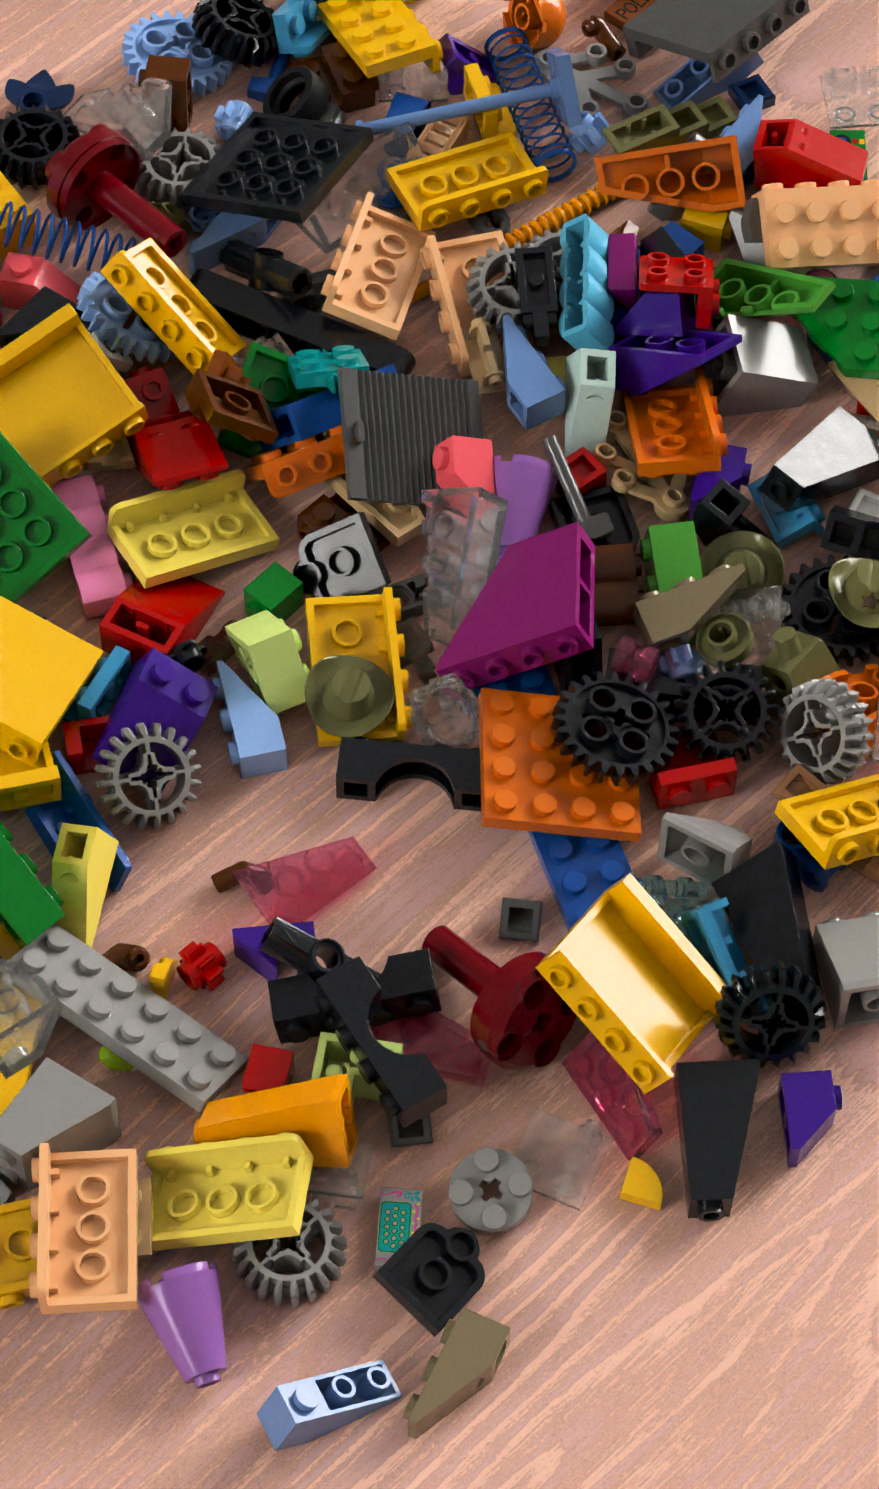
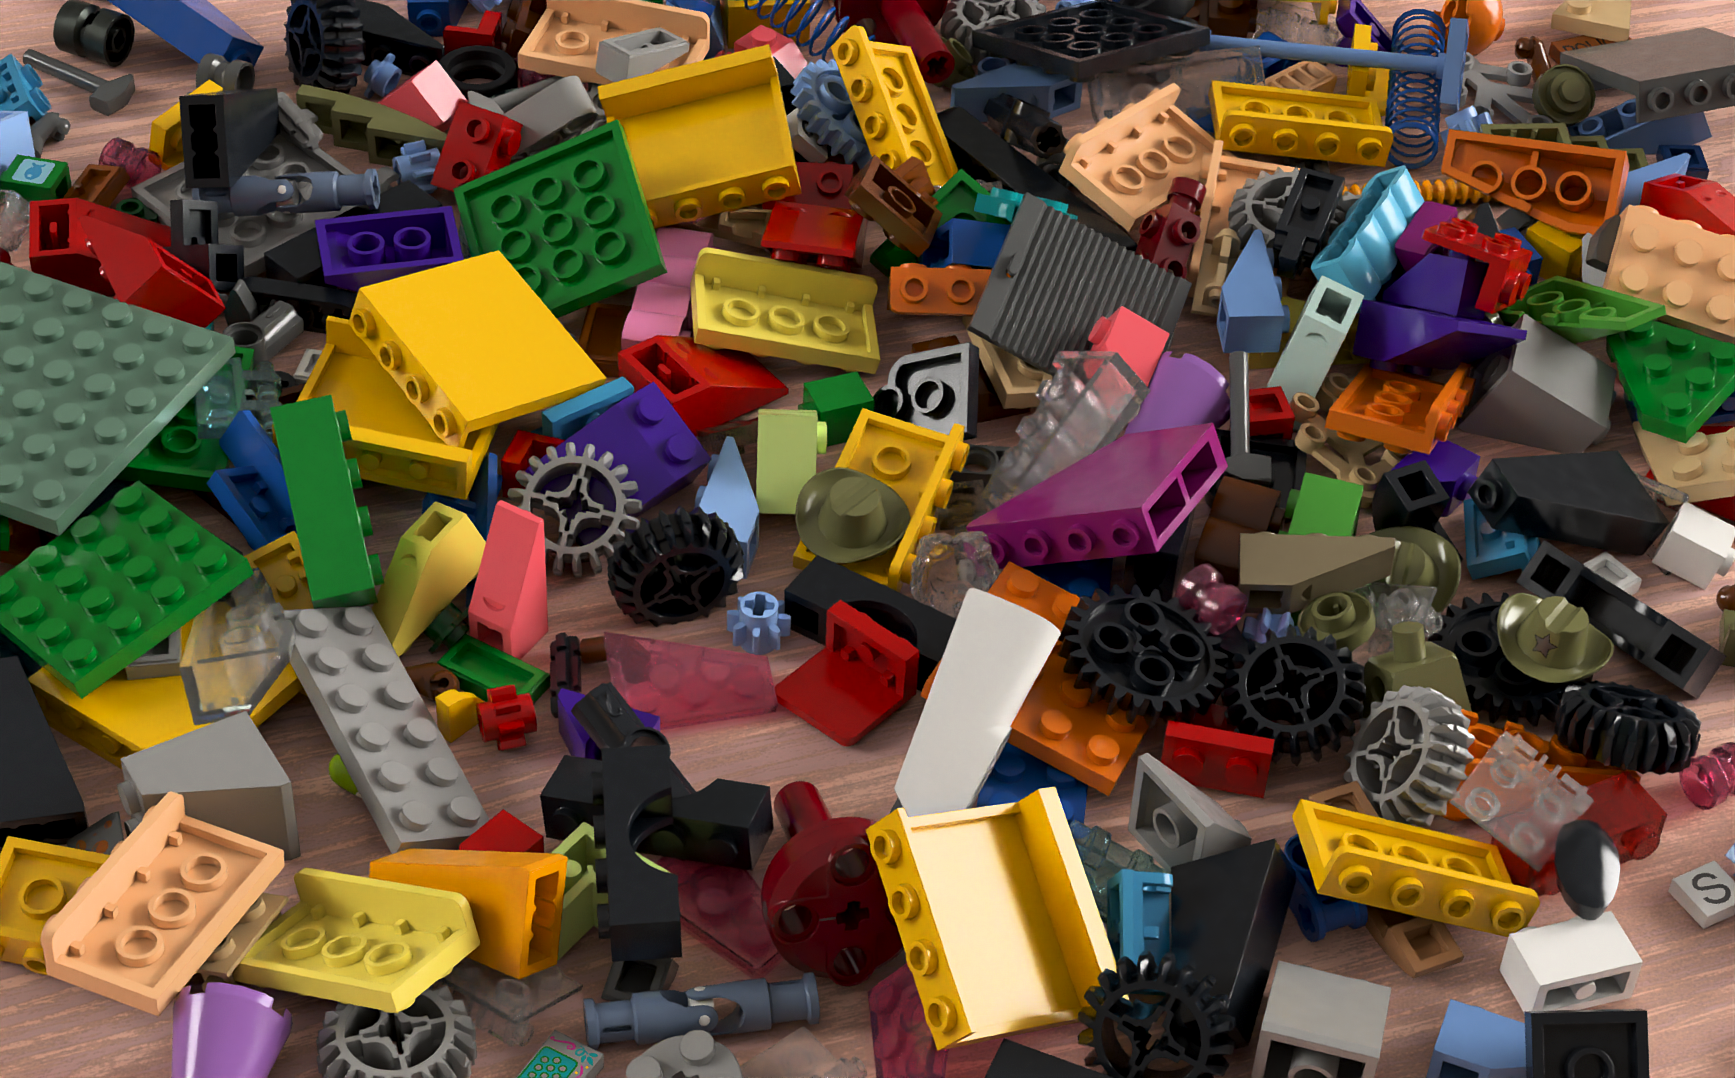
camera: 25 degrees right, 15 degrees down
(60, 602) = (602, 335): none -> dark orange tile
(114, 910) = (447, 627): none -> dark green plate
(150, 865) = (510, 587): none -> coral slope
(162, 931) = (486, 667): none -> green tile
(189, 655) = (698, 415): black plate -> none
(214, 909) = (564, 668): none -> black axle
(249, 793) = (675, 567): none -> black gear
(326, 808) = (758, 623): none -> light blue gear
(415, 826) = (853, 679): none -> red bracket
(431, 348) = (1163, 228): none -> dark red brick
(462, 1132) = (670, 1013): none -> sand blue piece
(526, 833) = (972, 703): none -> white panel
(644, 69) = (1564, 94): none -> olive plate

